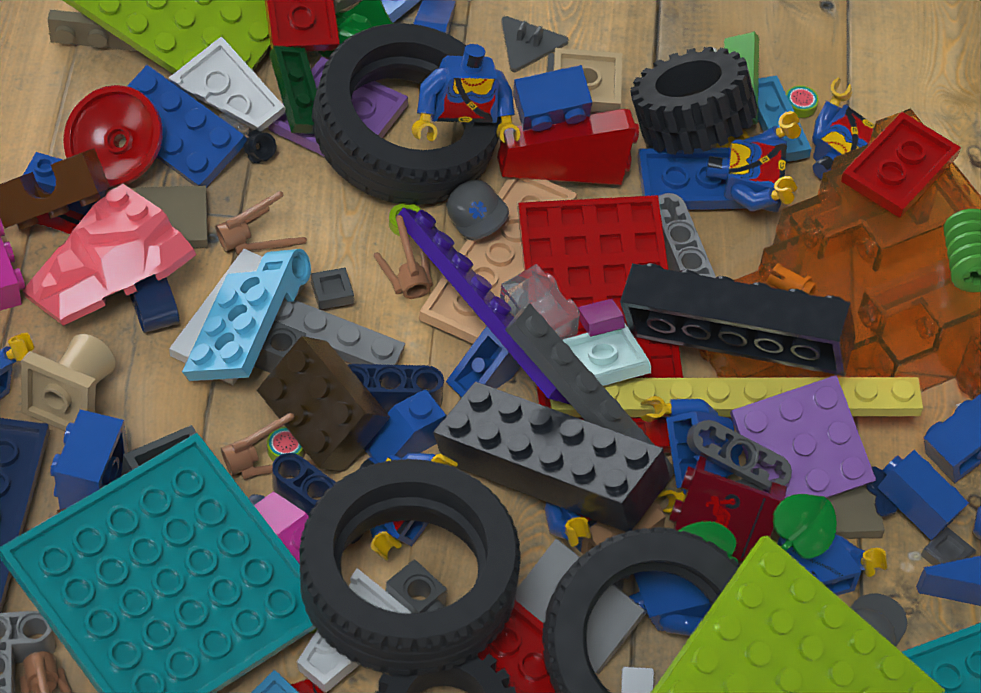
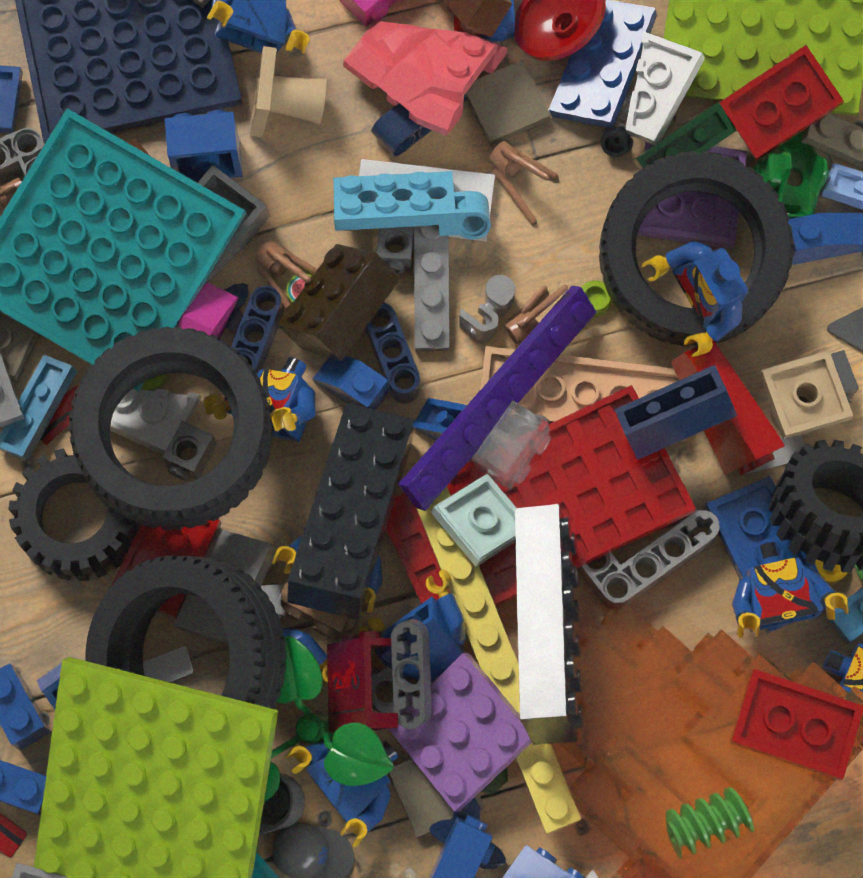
camera: 75 degrees right, 20 degrees up
(332, 288) = (482, 264): dark grey plate -> none
(372, 290) = (498, 300): none -> light grey leg
(476, 209) = (622, 354): dark grey cap -> none
(552, 98) = (750, 367): blue brick -> none
(571, 163) = (676, 412): none -> dark blue brick
(571, 375) = (416, 519): dark grey plate -> none
(601, 317) = (524, 496): magenta tile -> none
(791, 281) = (621, 664): orange pin -> none

